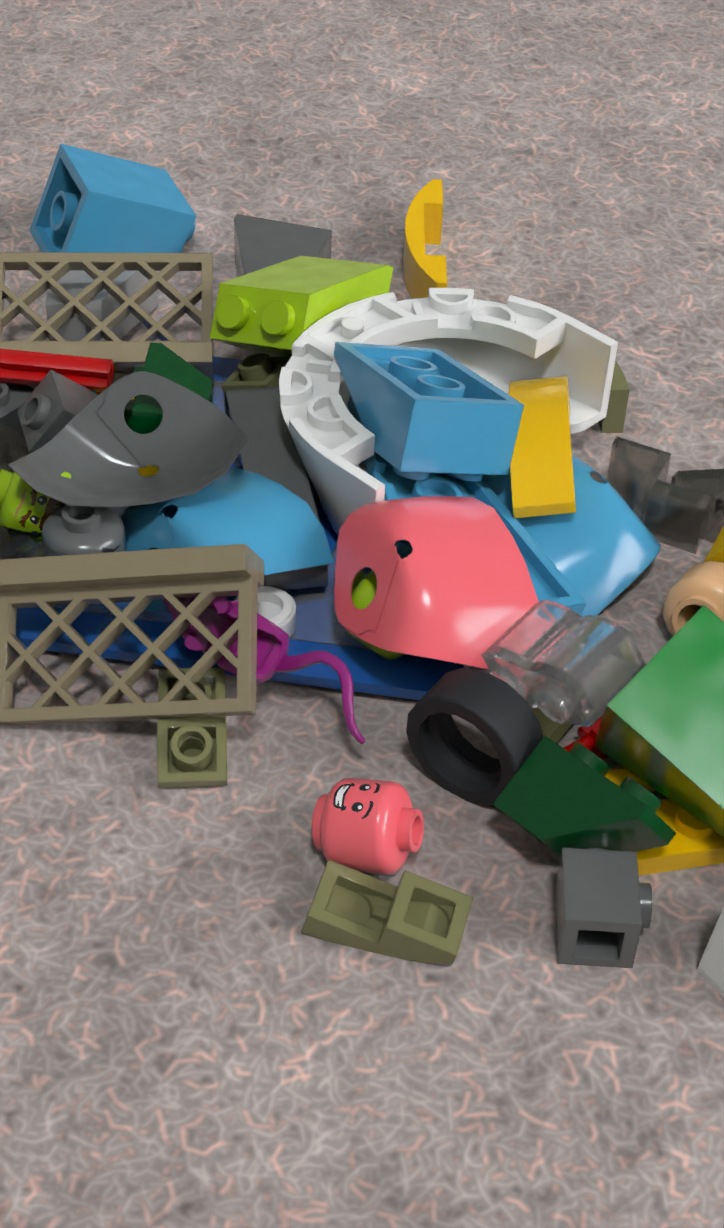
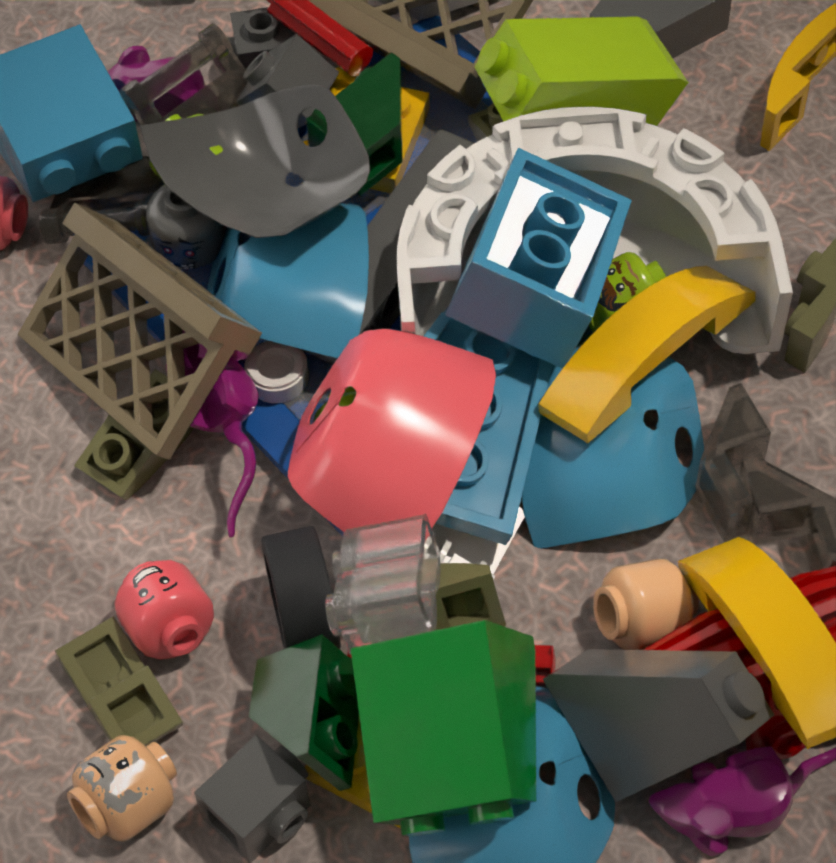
camera: 45 degrees right, 15 degrees up
(490, 971) = (122, 788): none -> light nougat head

